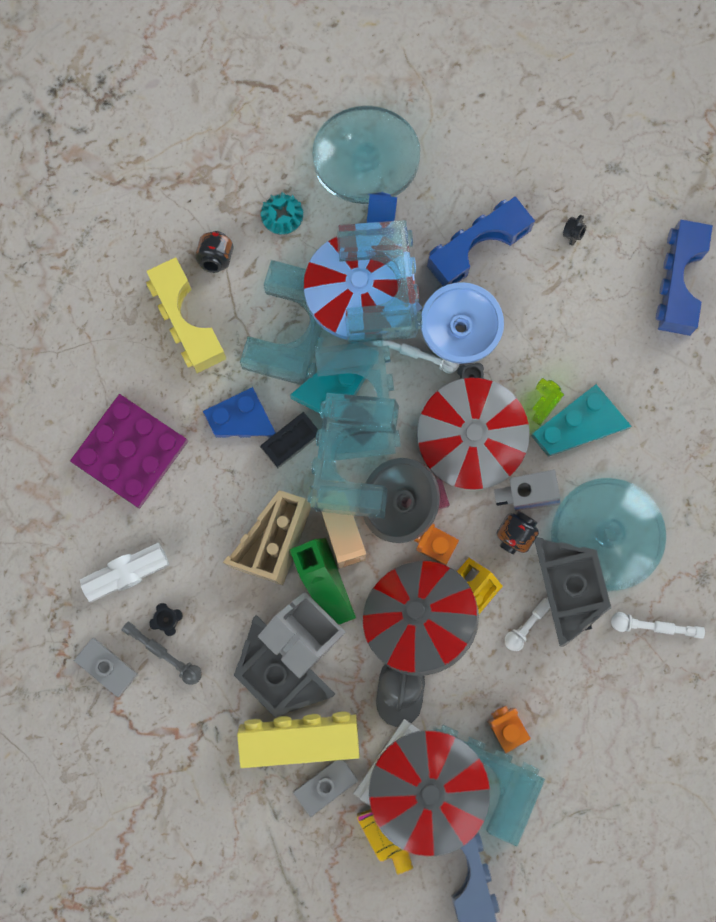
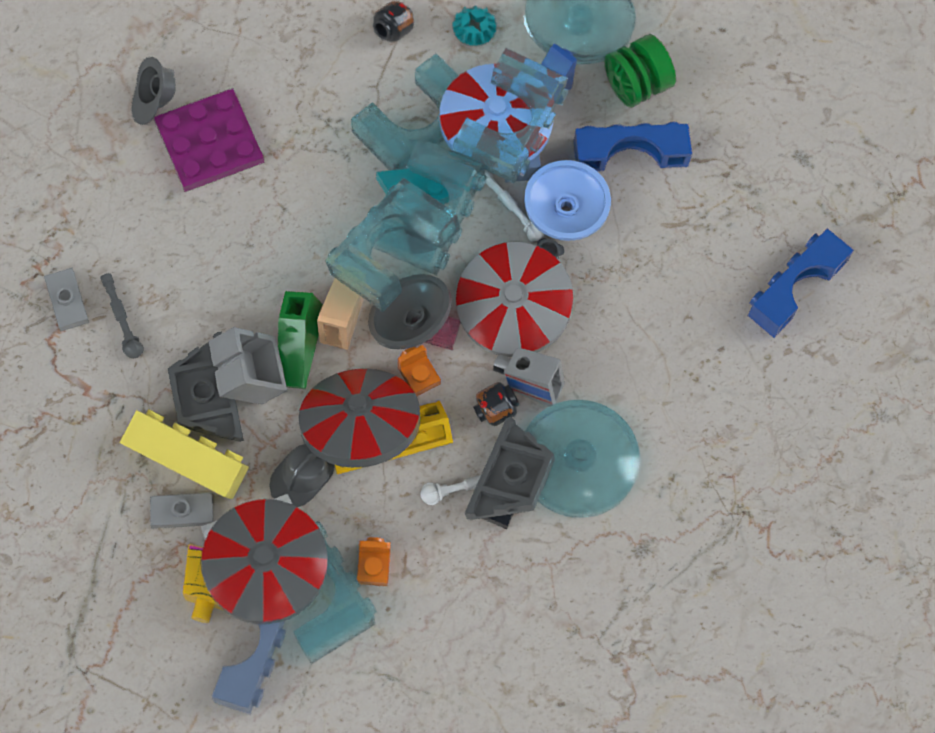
camera: 30 degrees right, 10 degrees down
(53, 439) = (152, 91): none -> dark grey piece
(124, 572) = (135, 231): white piece -> none
(163, 611) = (139, 284): black plate -> none
(172, 286) = (336, 29): light yellow arch -> none
(239, 417) = (322, 167): blue wing -> none
(267, 545) = (264, 280): tan wedge -> none
(290, 440) = (347, 210): black plate -> none
(447, 172) = (640, 70): none -> green wheel
(545, 406) = (598, 315): clear neon green bracket -> none
(574, 229) = (726, 184): black plate -> none
(582, 421) = (620, 349): teal wing -> none
(624, 622) = (538, 537): white piece -> none

